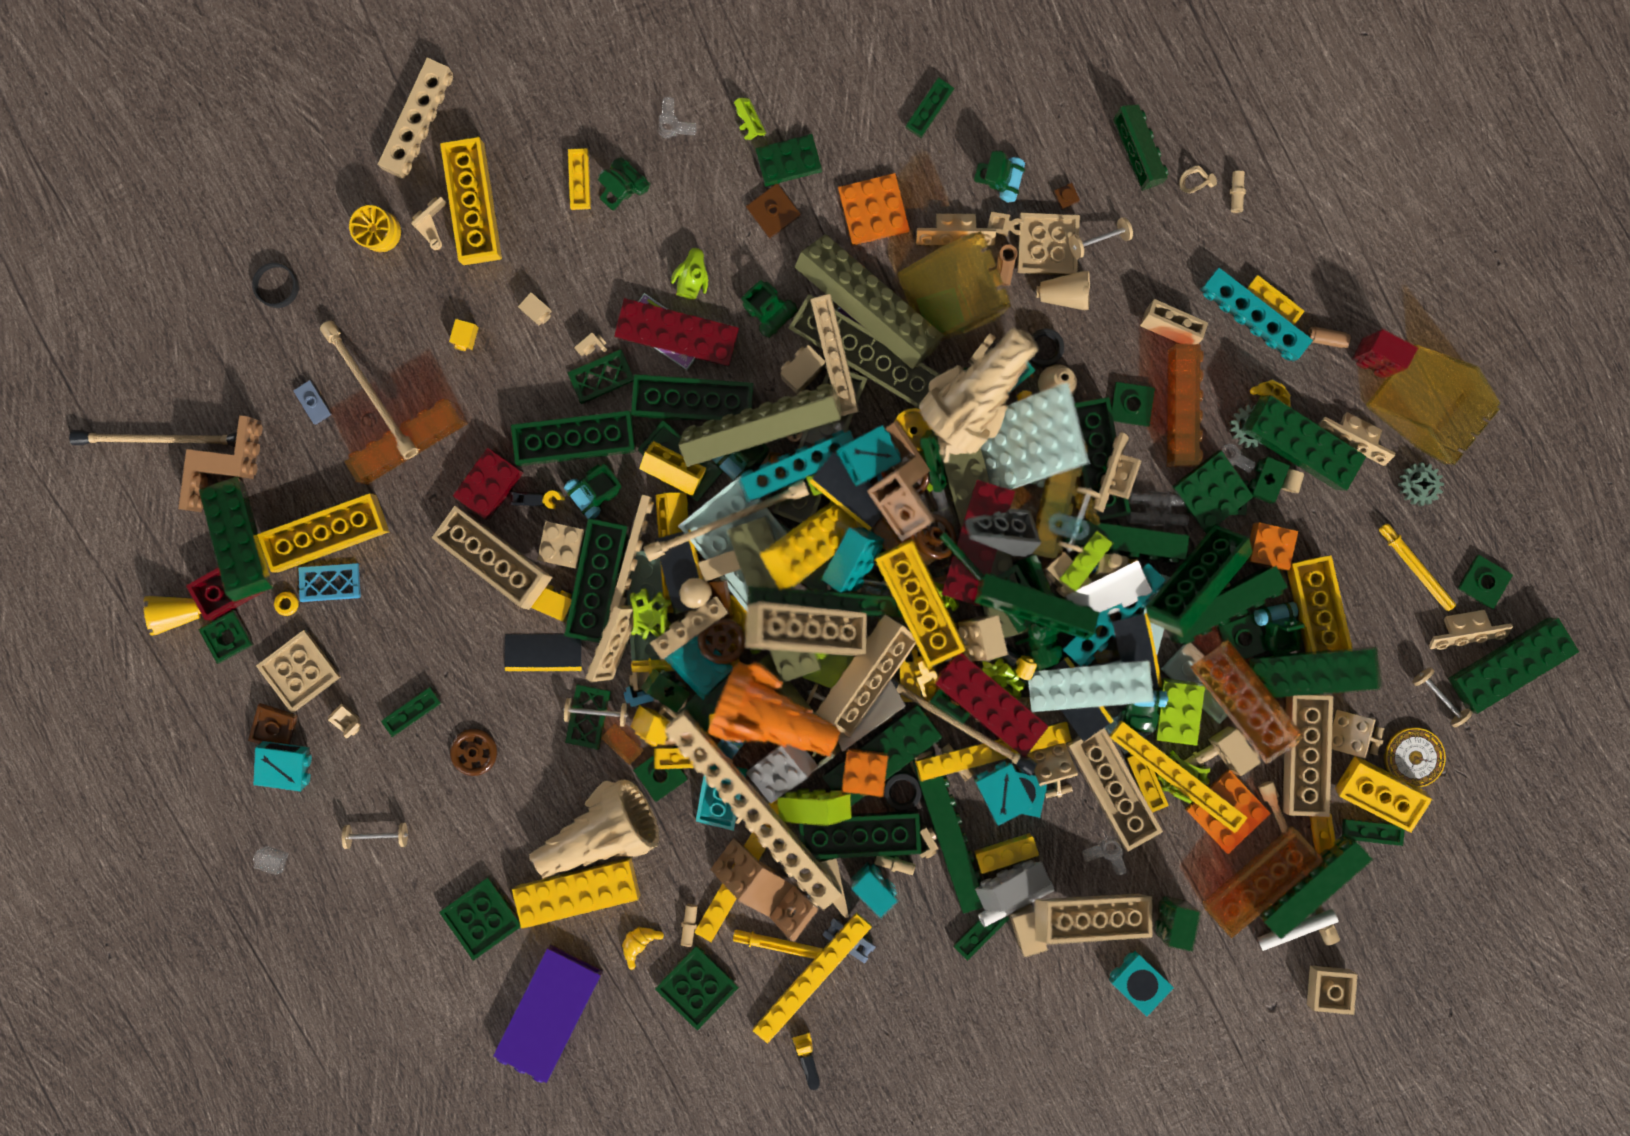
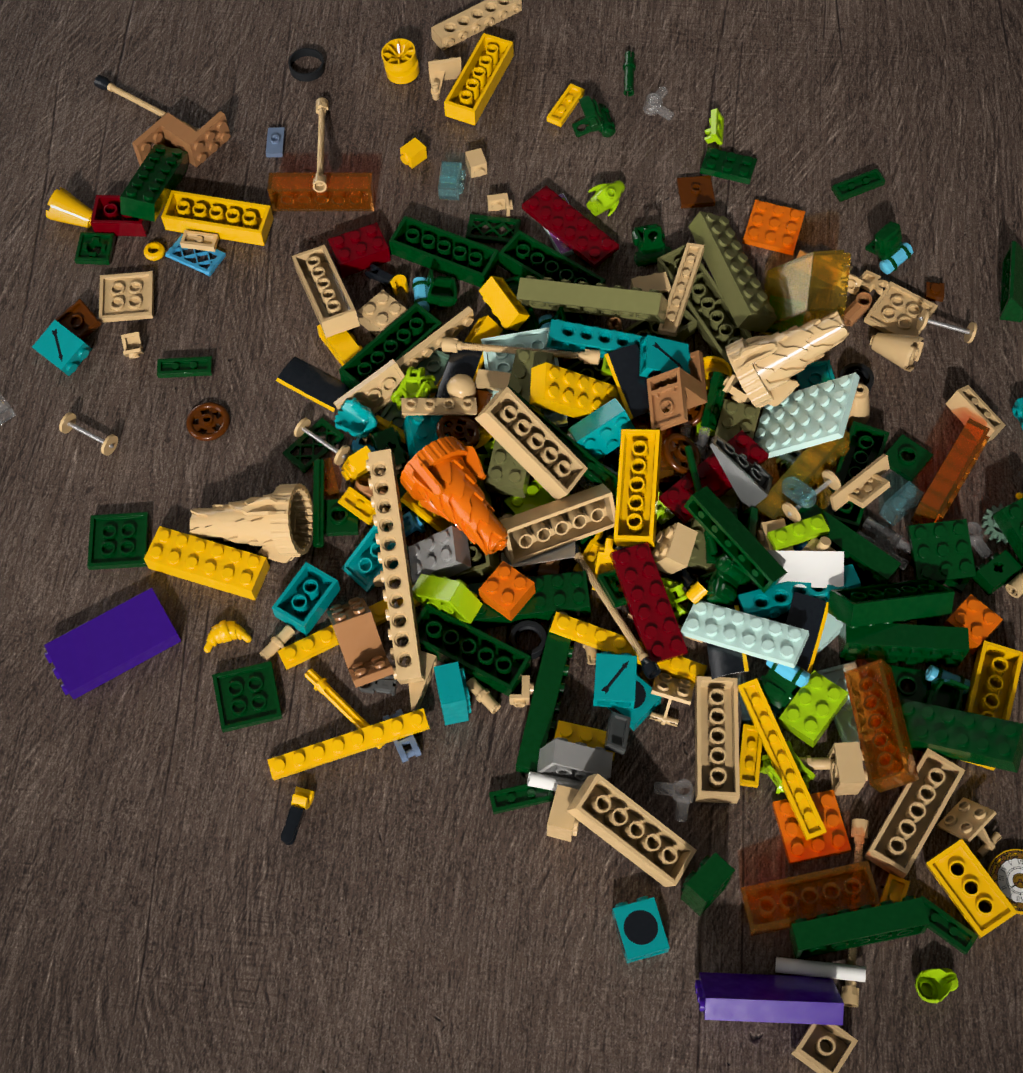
camera: 30 degrees right, 25 degrees down
(324, 569) = (199, 240): none -> tan plate
(524, 346) = (450, 180): none -> clear light blue brick
(618, 682) = (355, 419): none -> teal hair
(619, 97) = (629, 68): none -> dark green pin
(636, 777) = (318, 503): none -> dark green axle
(688, 874) = (306, 598): none -> teal brick
(1032, 838) = (617, 733): none -> dark grey tile
(1152, 459) = (901, 503): none -> clear light blue brick
(1274, 985) = (769, 998): none -> dark purple brick
(1391, 887) = (935, 984): none -> lime hair

